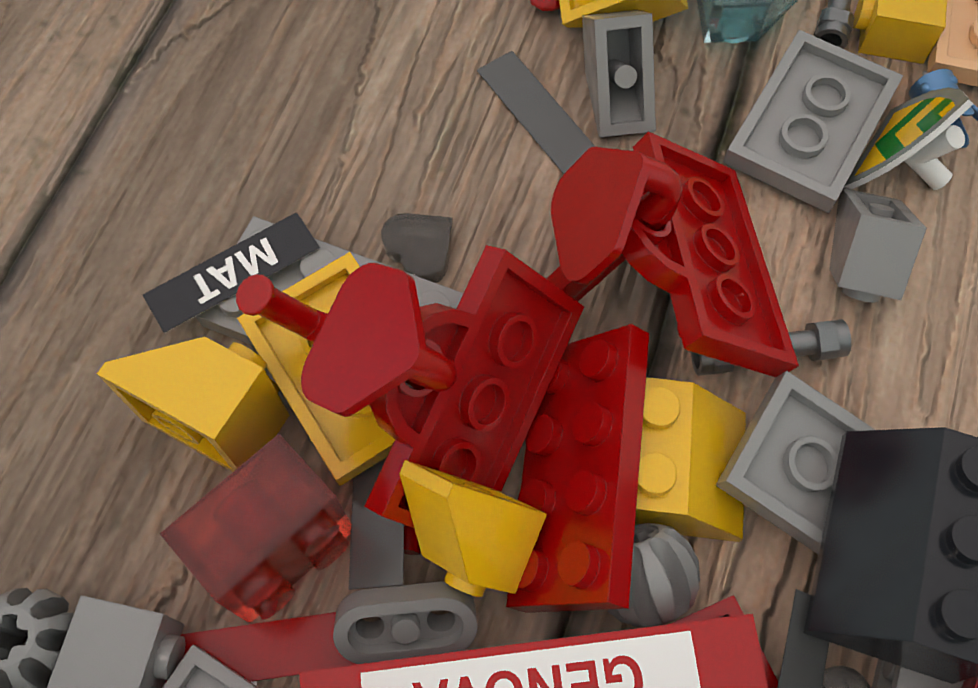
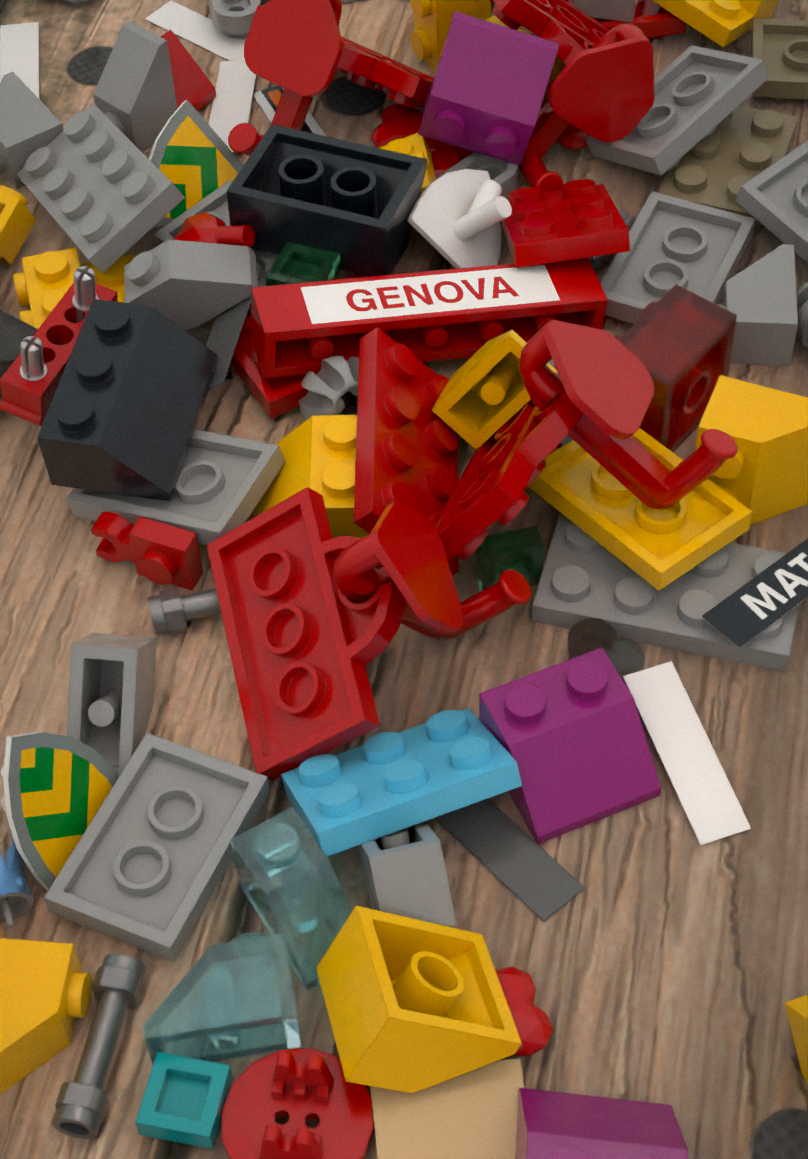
camera: 175 degrees right, 15 degrees down
(370, 156) = (686, 753): none -> white sticker
(473, 161) = (573, 744): none -> magenta slope
(613, 112) = (399, 780): none -> medium azure plate
(707, 66) = (292, 888): none -> clear light blue slope
(861, 399) = (157, 549): none -> red plate

